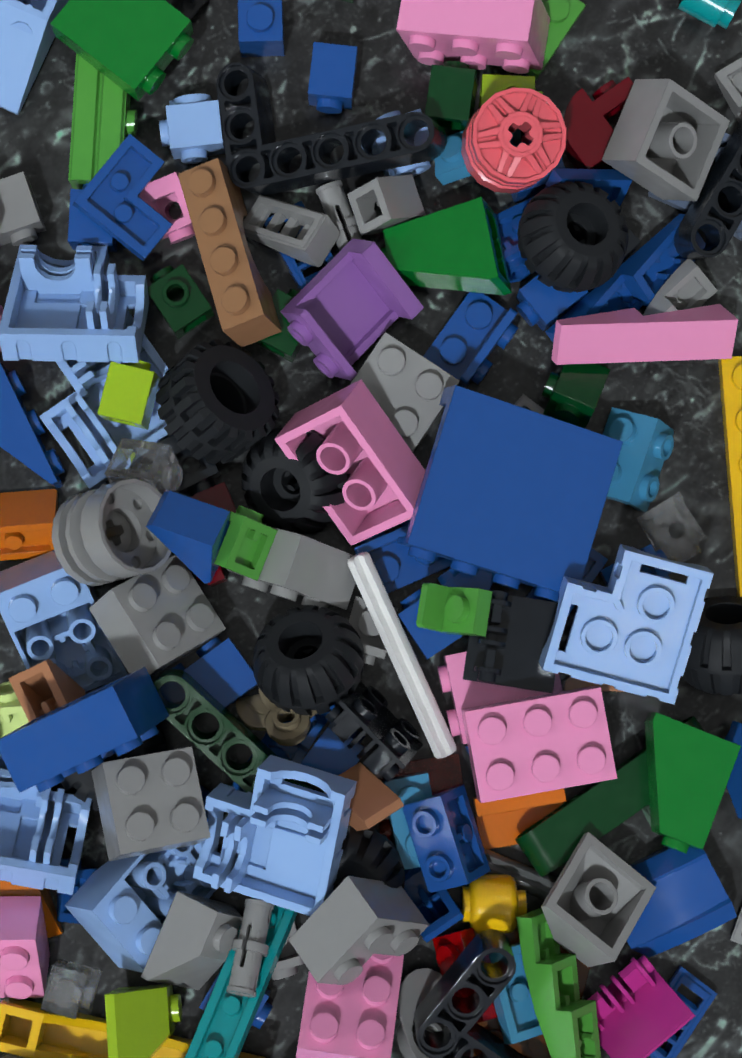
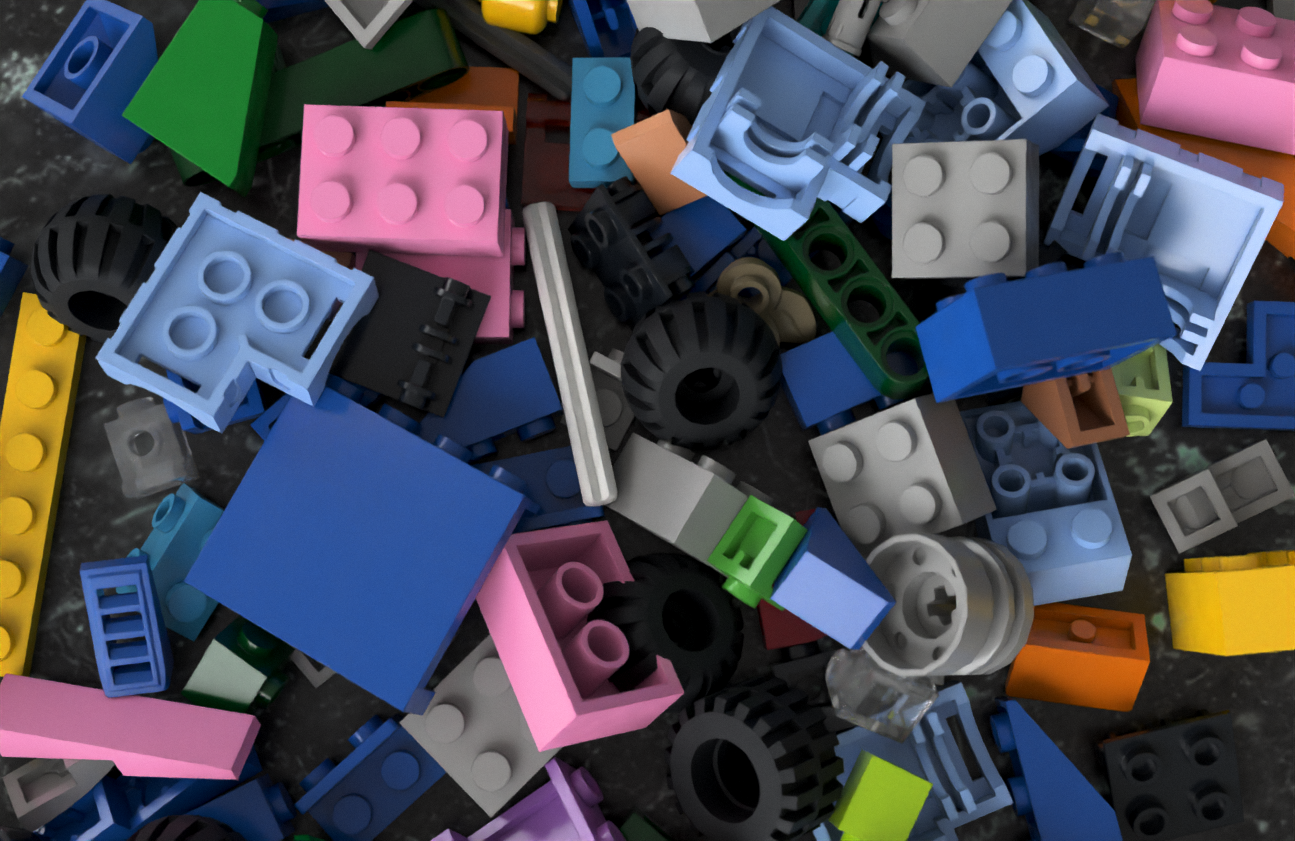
camera: 165 degrees left, 0 degrees up
(446, 839) = (562, 81): blue bracket -> none
(454, 609) = (479, 392): bright green bracket -> none
(646, 380) = (133, 665): none -> blue slope

